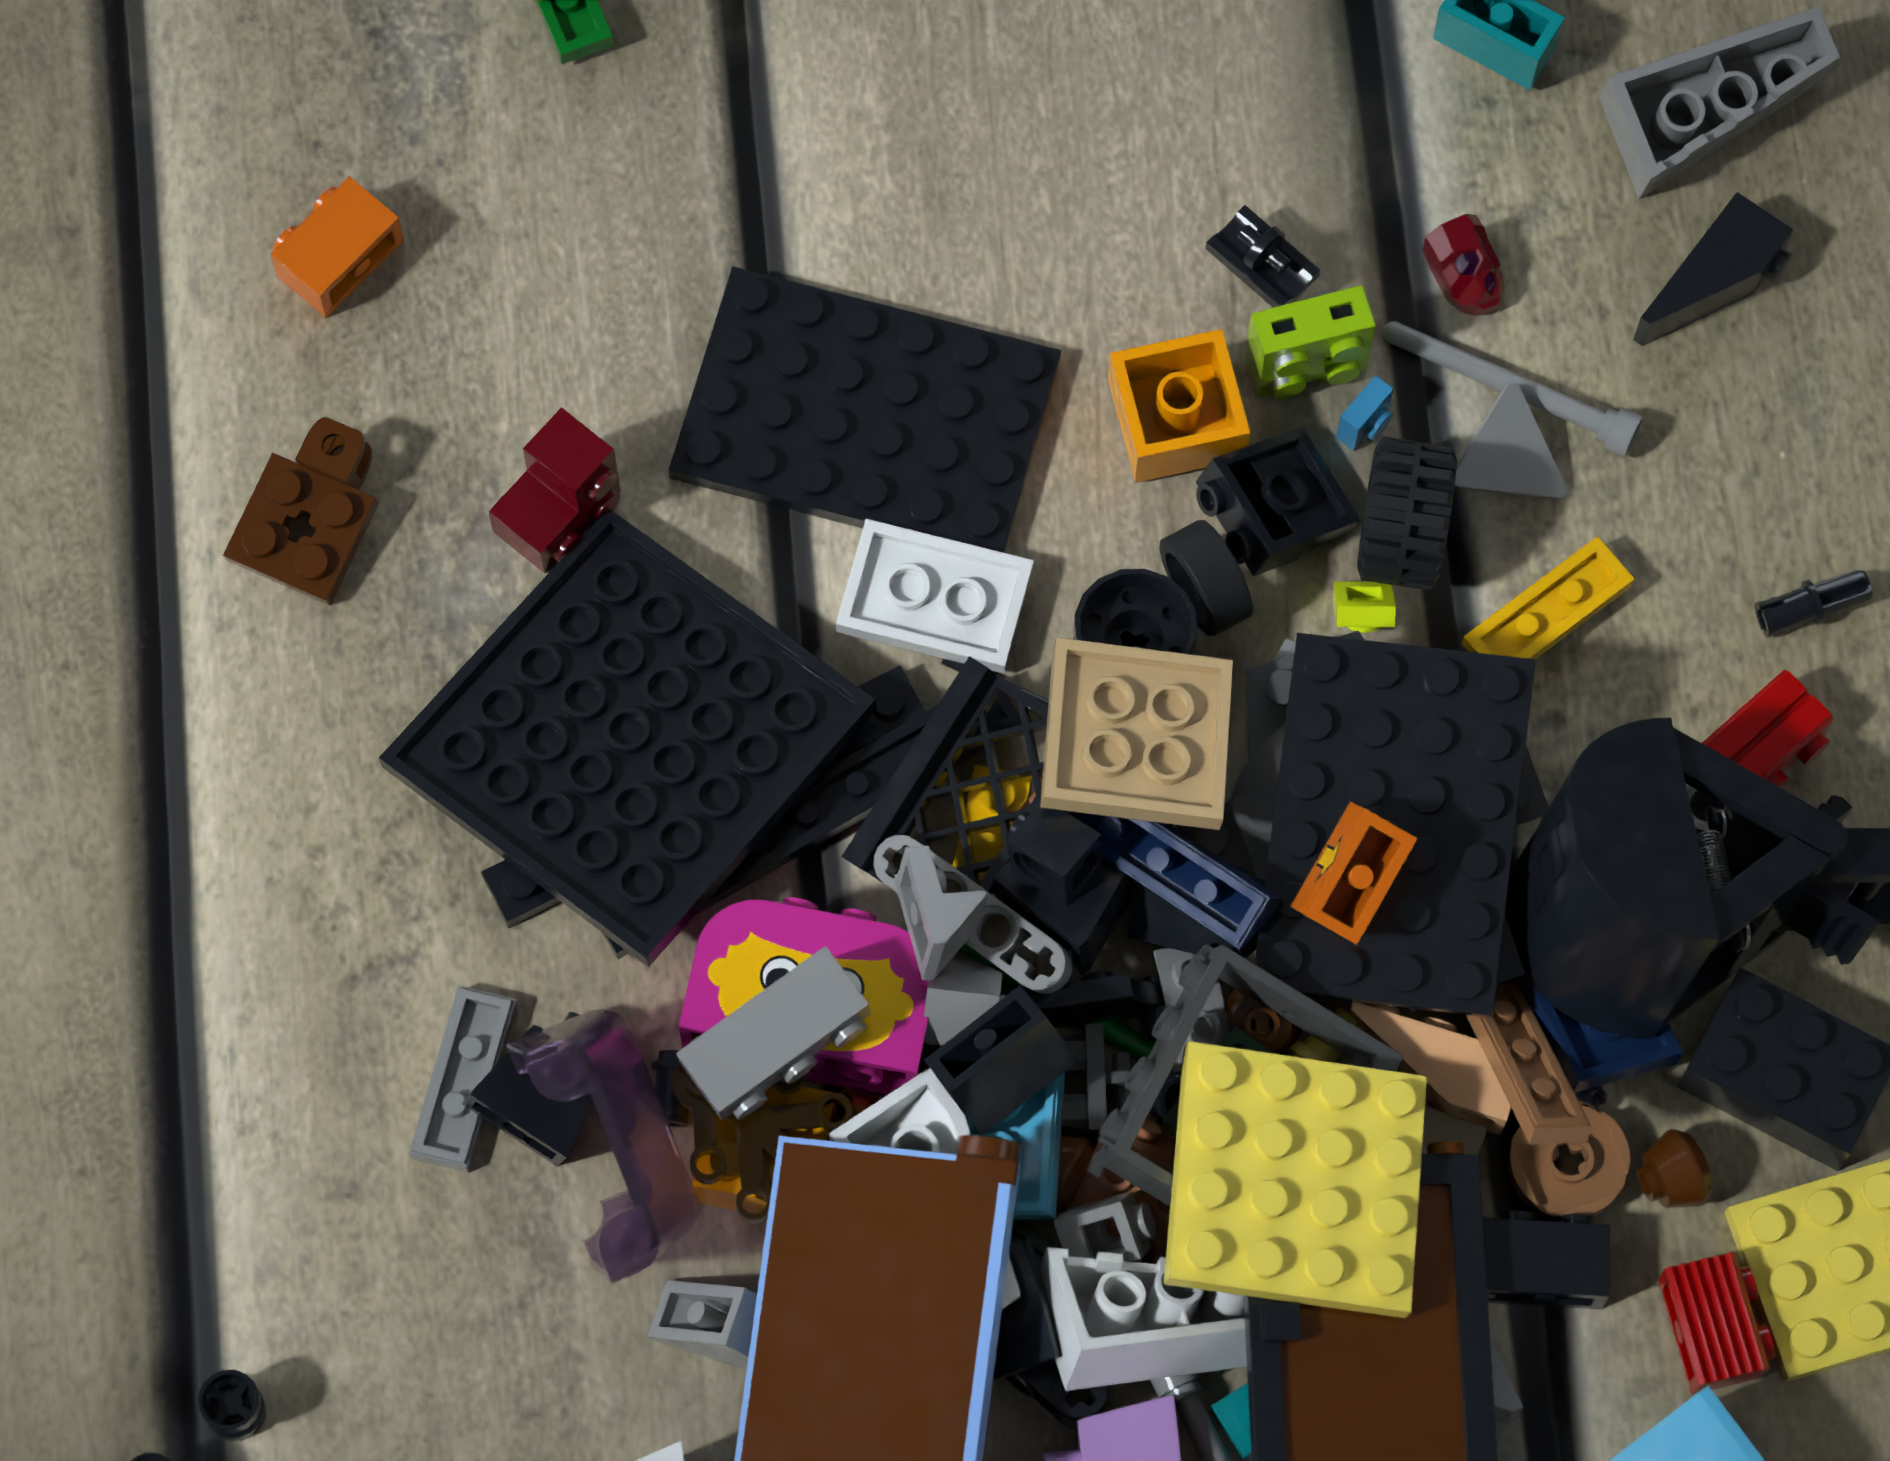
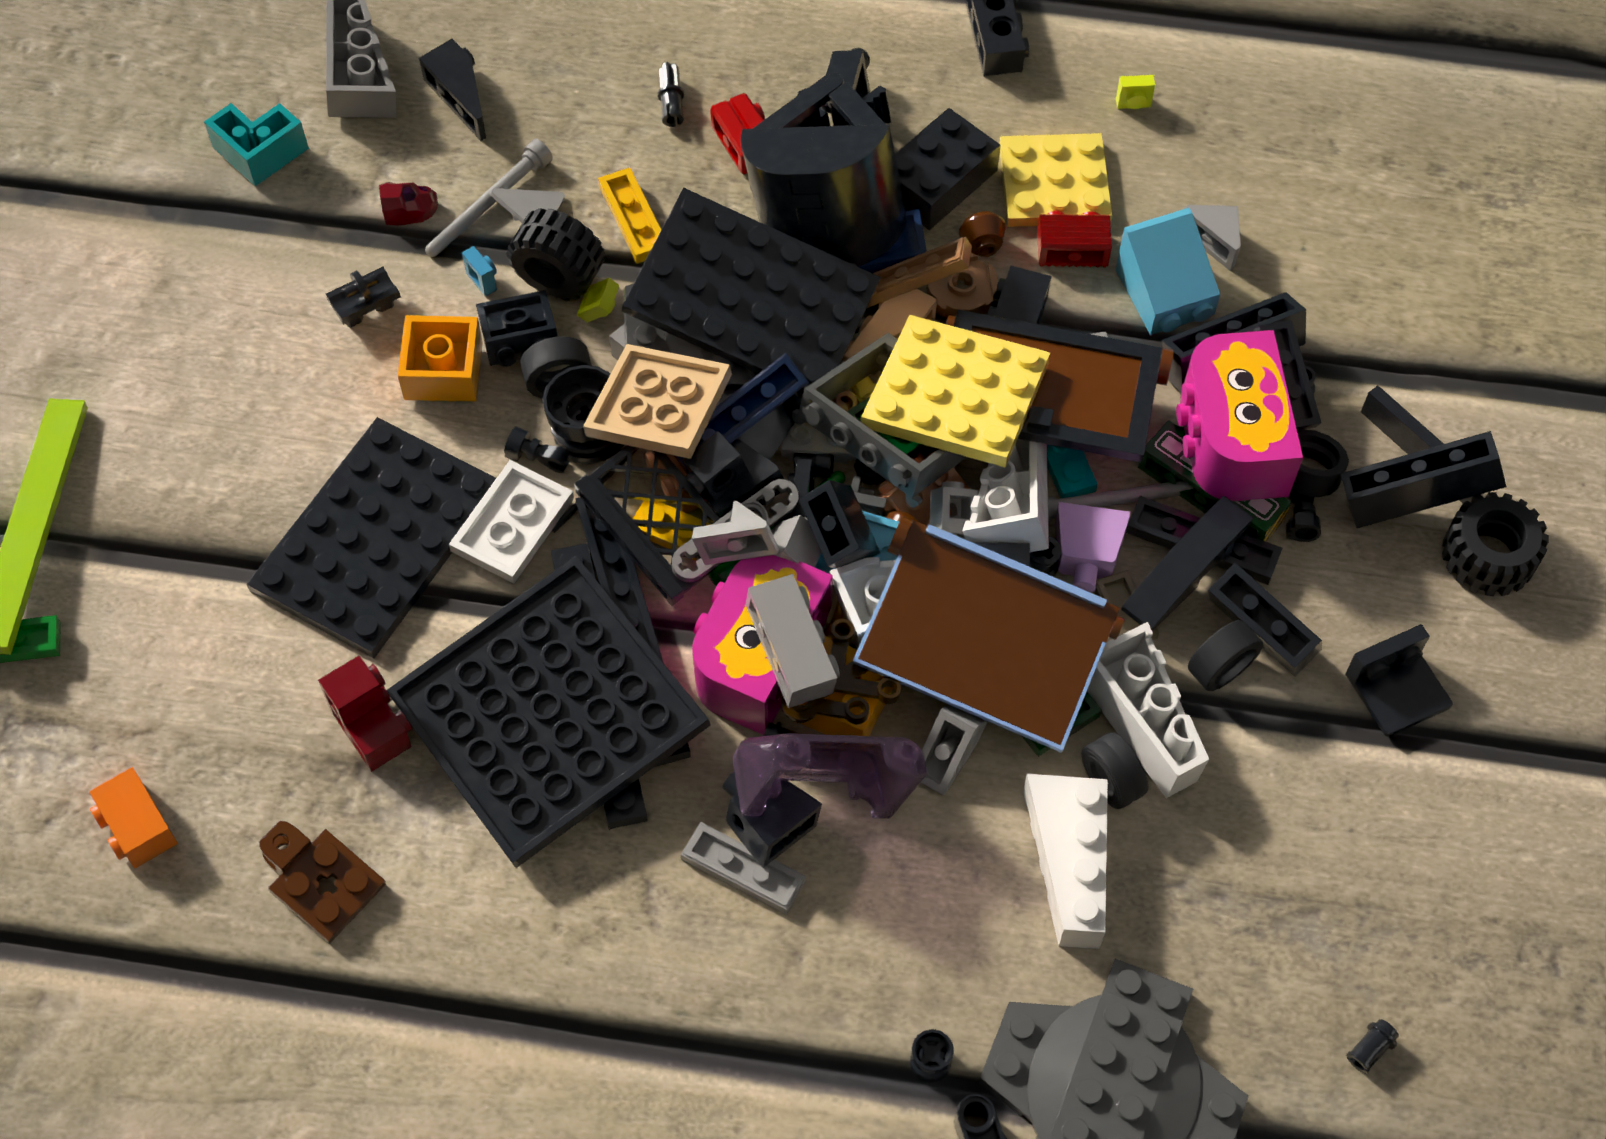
camera: 75 degrees left, 10 degrees down
(1069, 565) = (551, 456): none -> black piece
(1309, 341) = (429, 274): lime piece -> none
(1353, 872) = (784, 305): orange brick -> none

